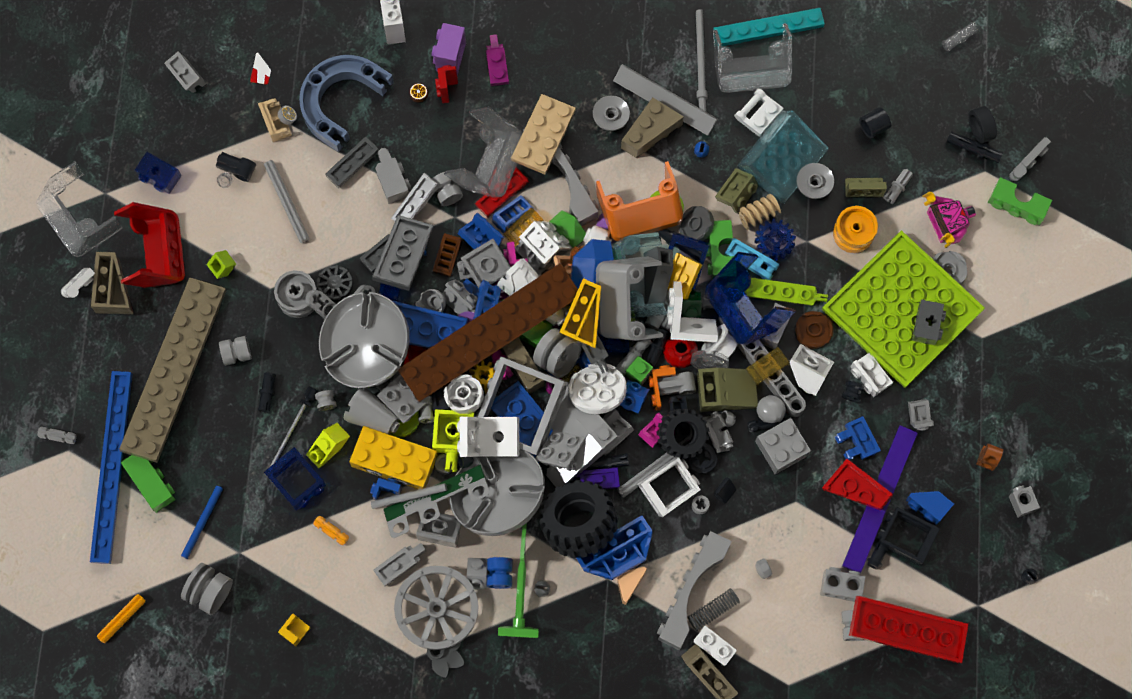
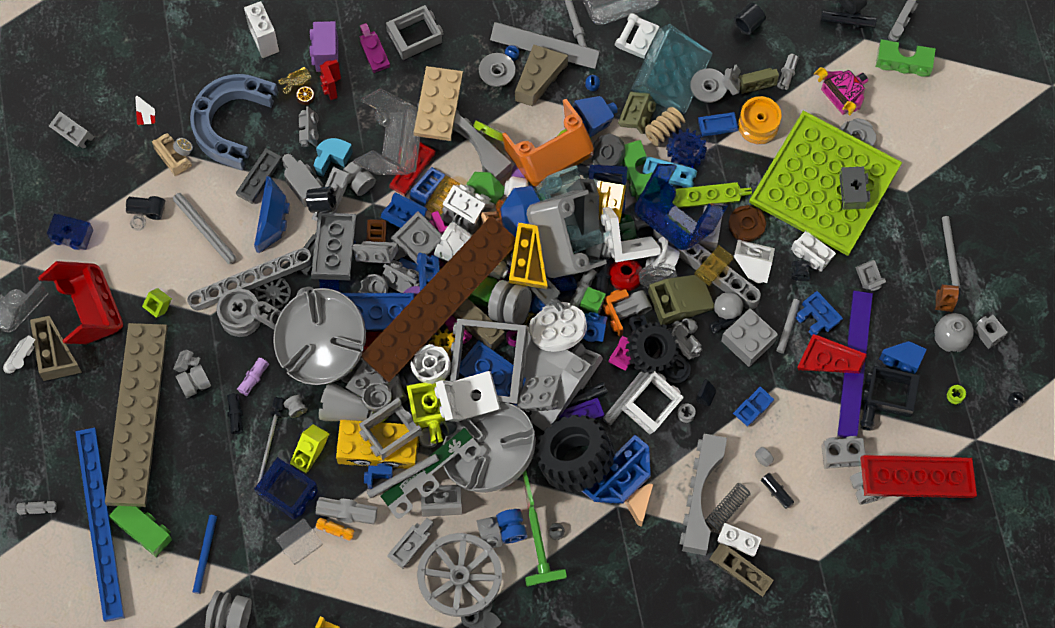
camera: 15 degrees left, 5 degrees down
(233, 329) = (185, 361): none -> light grey plate
(293, 360) = (252, 376): none -> lavender pin
(294, 533) = (299, 541): none -> clear piece
(325, 265) = (257, 271): none -> light grey beam
(346, 515) = (346, 510): none -> light grey piece
(353, 206) = (272, 216): none -> blue wedge
(383, 448) = (393, 407): none -> light grey window
(402, 414) = (376, 396): none -> light grey hair
(403, 203) = (321, 199): none -> black piece
(414, 73) = (298, 78): none -> clear yellow plate
(414, 118) = (308, 119): none -> light grey hinge
(429, 155) = (330, 151): none -> medium azure brick
(442, 268) = (375, 251): none -> light grey bracket
(537, 41) = (408, 19): none -> light grey window
(586, 174) = (488, 130): none -> lime tile
(630, 102) = (514, 56): none -> blue hinge
(693, 182) = (595, 113): none -> blue torso
(767, 605) = (777, 490): none -> black axle
(768, 516) = (754, 406): none -> blue slope
(813, 222) = (718, 124): none -> blue tile
(825, 443) = (788, 326): none -> light grey bar
(838, 182) = (731, 80): none -> light grey plate
(973, 550) = (956, 400): none -> lime bush
(987, 493) = (954, 332): none -> light grey cylinder
(1008, 411) = (950, 251): none -> light grey bar

